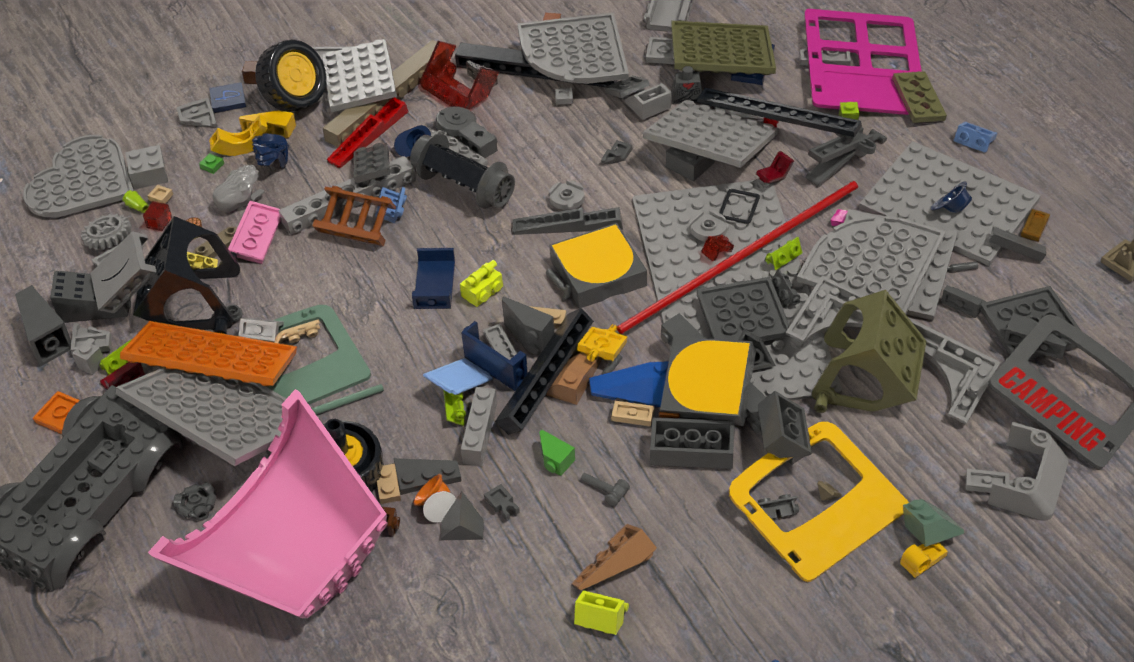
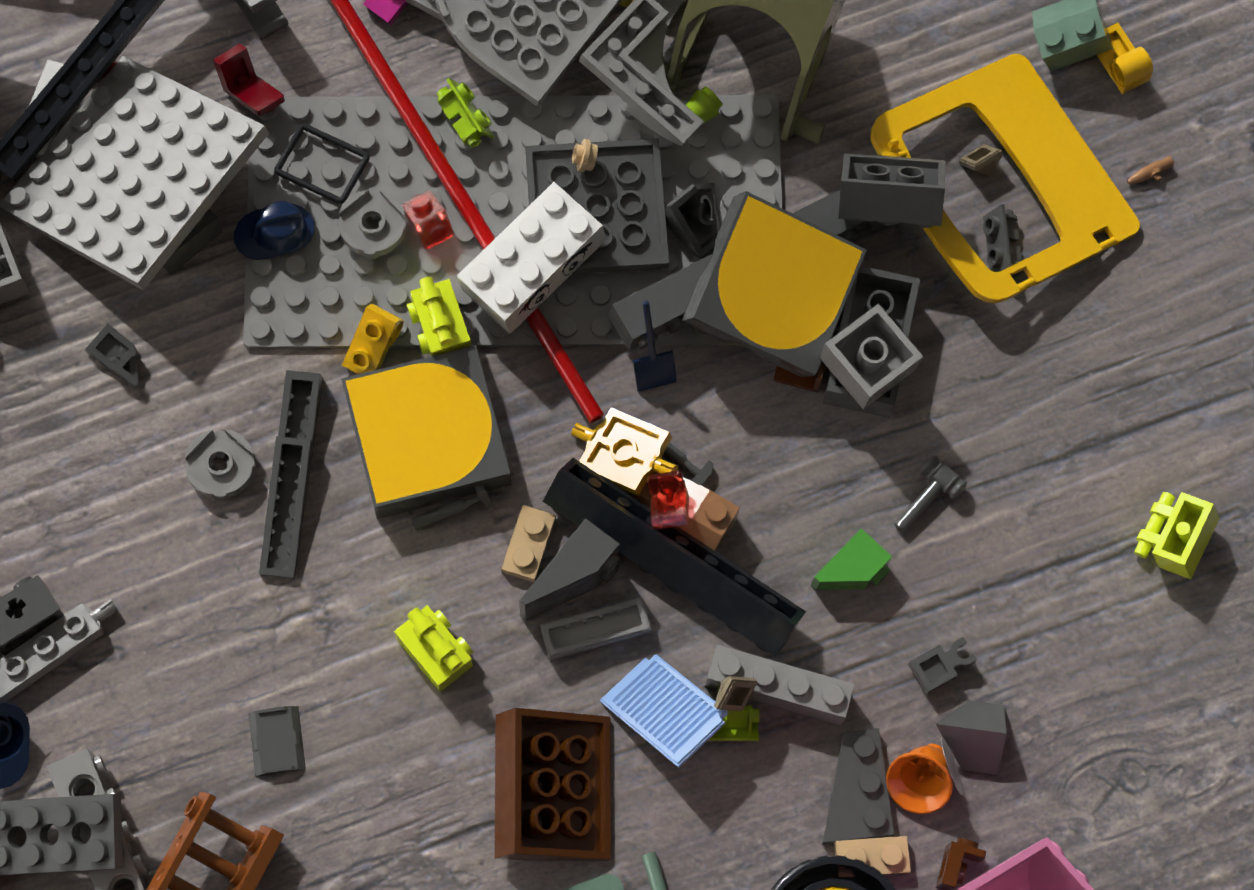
camera: 90 degrees left, 25 degrees up
(398, 199) = (163, 801): medium blue bracket -> none
(413, 340) = (552, 786): none -> reddish brown slope
(429, 239) = (276, 740): none -> dark grey piece
(434, 278) = (395, 738): dark blue panel -> none
(466, 394) = (734, 693): none -> dark tan slope
(491, 184) = (133, 647): brick -> none
(507, 371) = (679, 611): dark blue panel -> none
(572, 358) = (668, 499): none -> clear red bracket
(626, 549) = (1074, 494): medium nougat wedge -> none
(632, 413) = (782, 427): tan plate -> none
(636, 384) = (728, 401): blue wedge -> none
(647, 236) = (372, 339): none -> yellow plate
(653, 350) = (657, 368): none -> dark blue piece
(660, 256) = (438, 317): none -> neon yellow brick
(672, 423) = (870, 356): none -> light grey brick
(697, 194) = (274, 231): none -> dark blue piece
(700, 280) = (531, 257): none -> white brick
(768, 296) = (585, 155): none -> tan plate
(784, 289) = (563, 129): dark grey hinge -> none
(817, 349) = (705, 104): none -> lime cone
(849, 584) = (1151, 171): none -> medium nougat helmet

